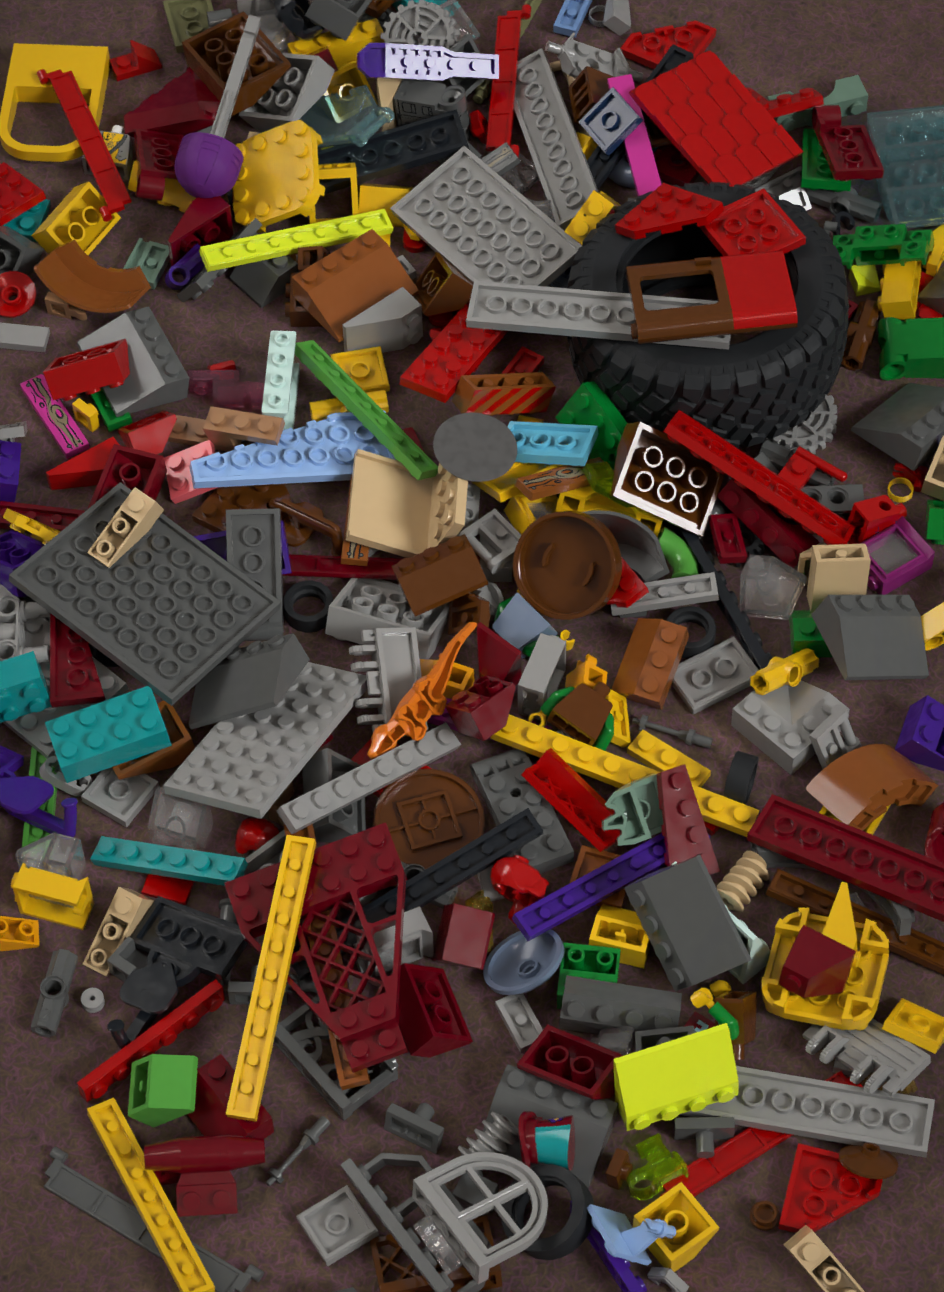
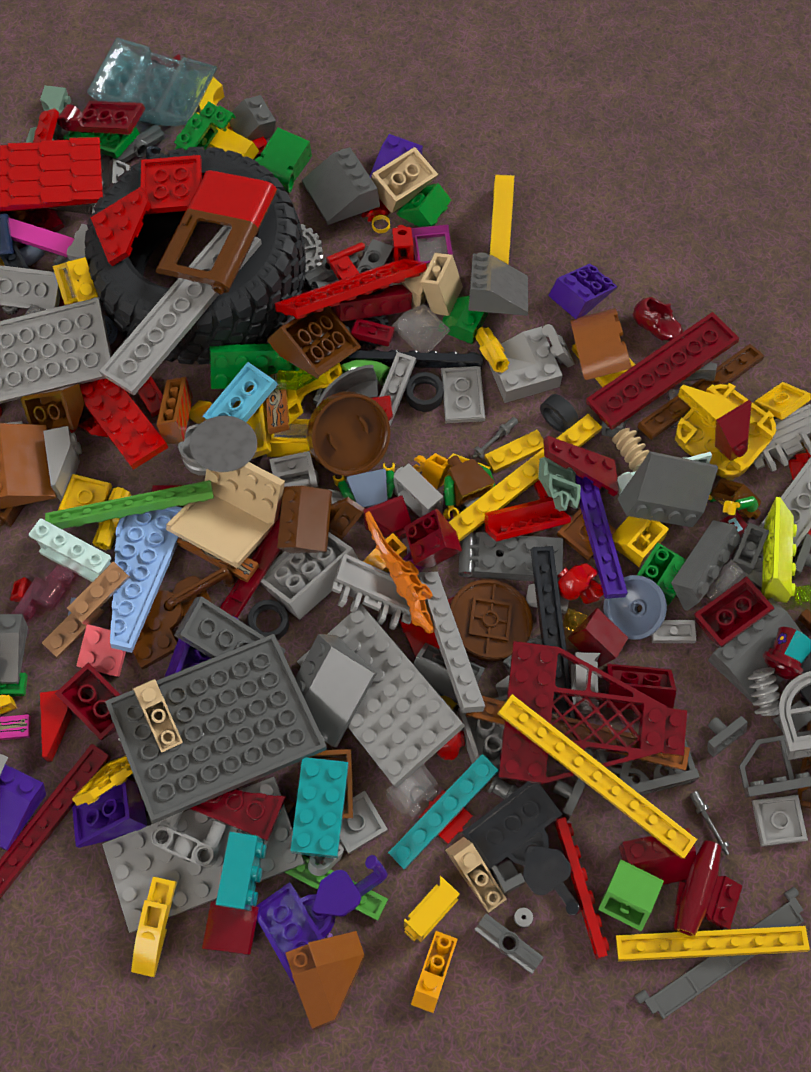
camera: 65 degrees left, 10 degrees up
(54, 854) = (404, 894): clear slope -> none
(149, 433) = (49, 666): red slope -> none
(651, 661) = (440, 423): dark orange slope -> none

